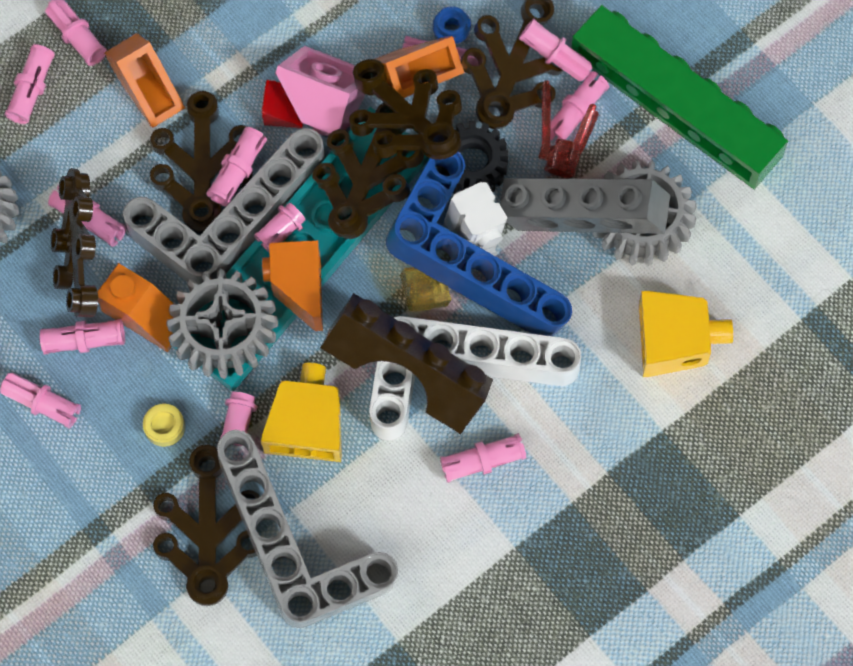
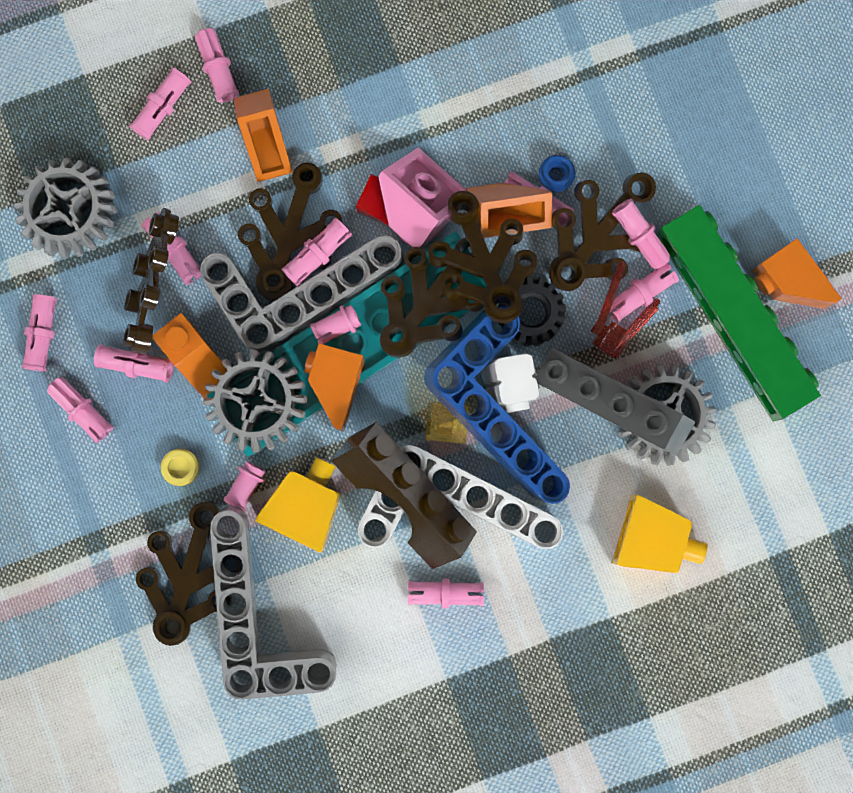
camera: 15 degrees right, 15 degrees up
(722, 46) = (795, 278): none -> orange slope

